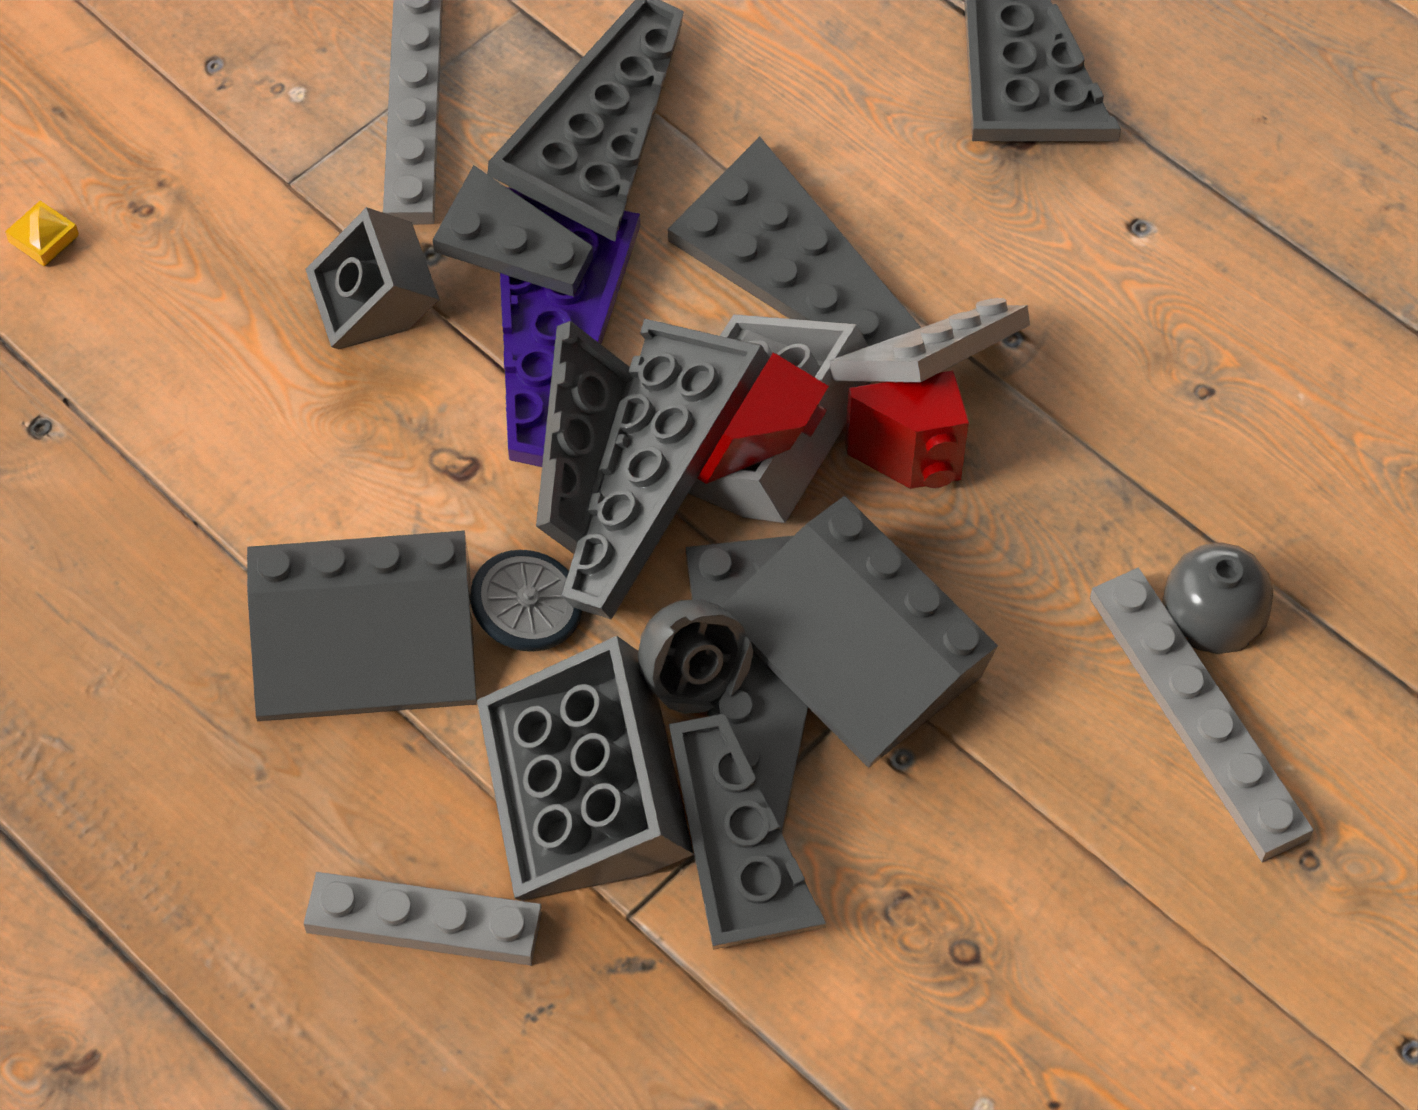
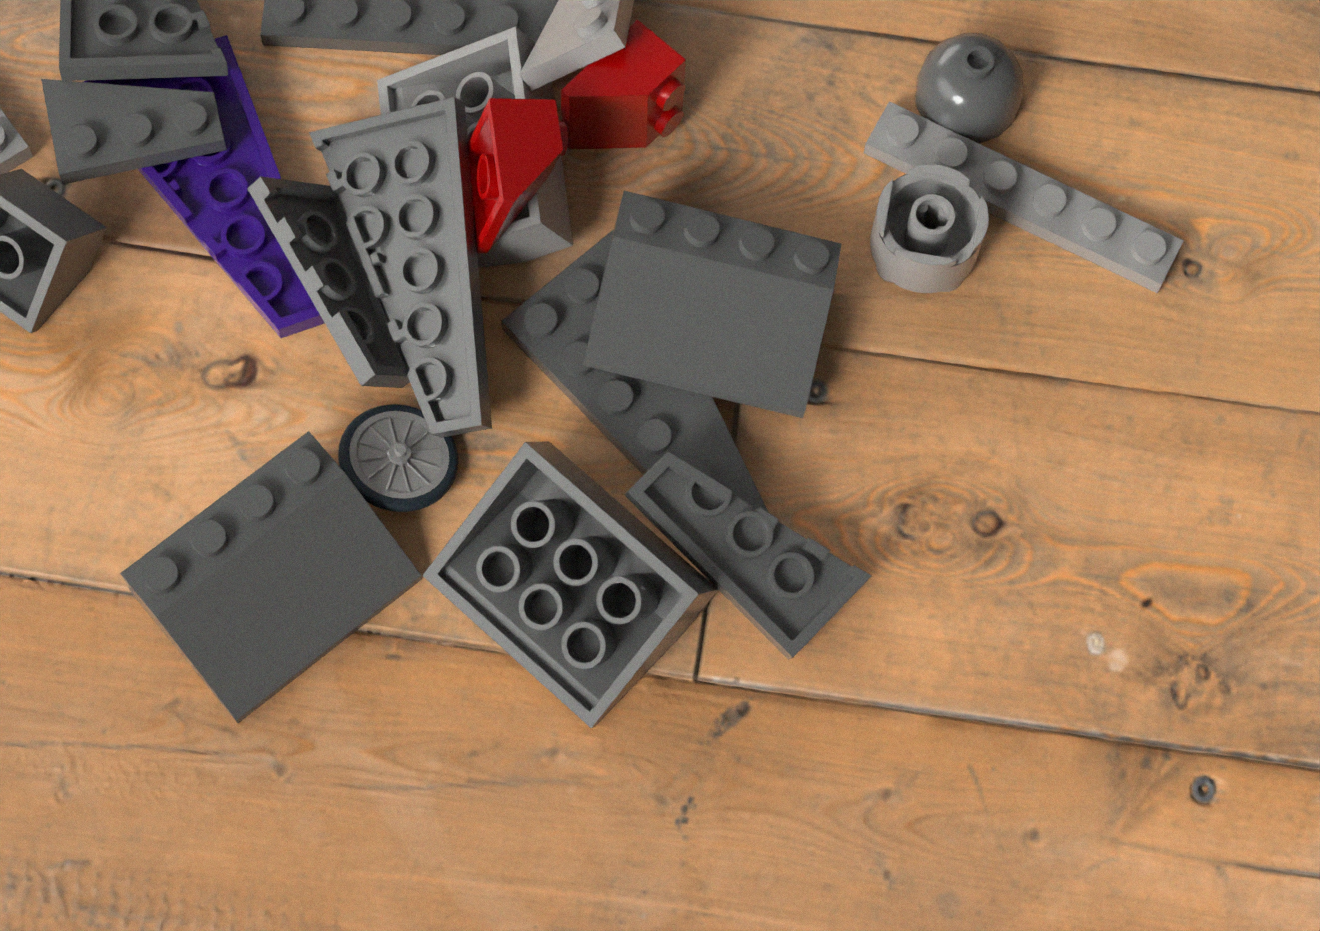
camera: 40 degrees left, 10 degrees up
(423, 918) = (526, 799): light grey plate -> none
(693, 655) = (595, 414): dark grey cylinder -> none
(1087, 683) = (928, 229): none -> light grey brick

